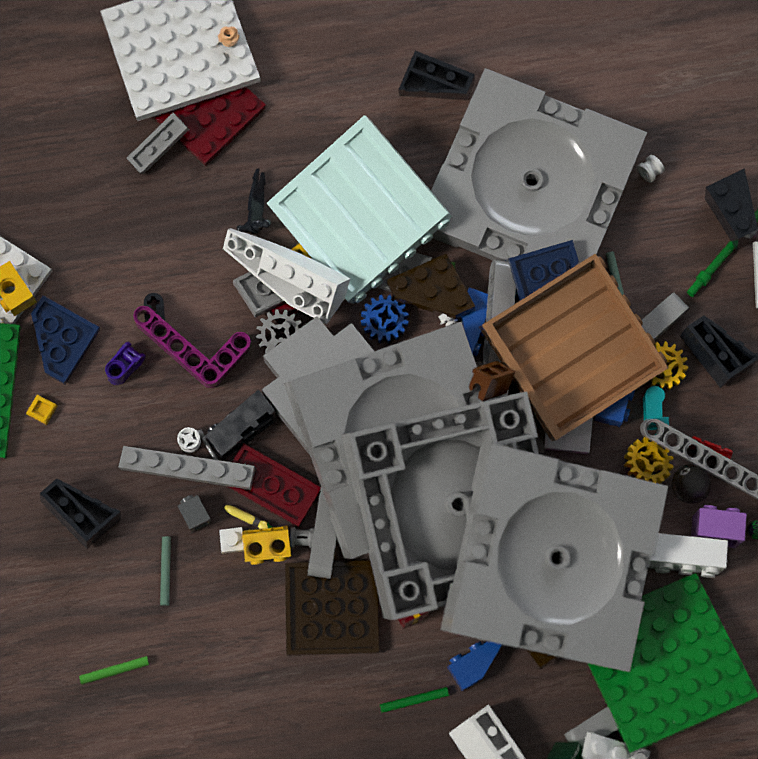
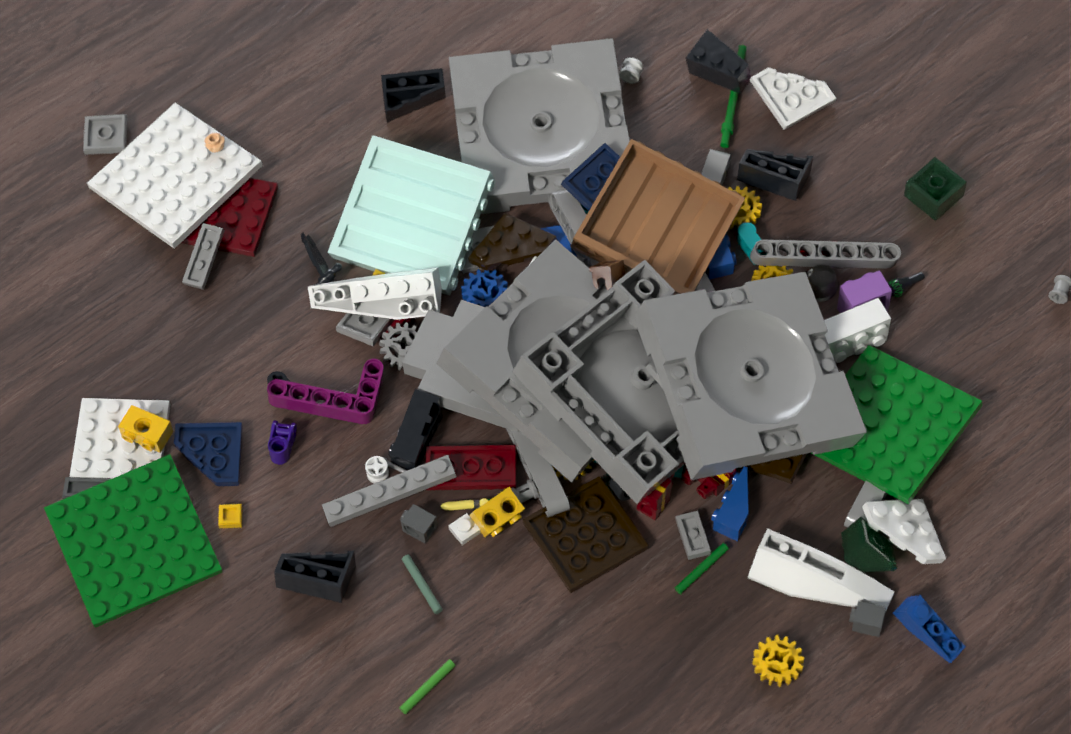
camera: 25 degrees left, 15 degrees down
(424, 665) = (693, 535): none -> light grey plate

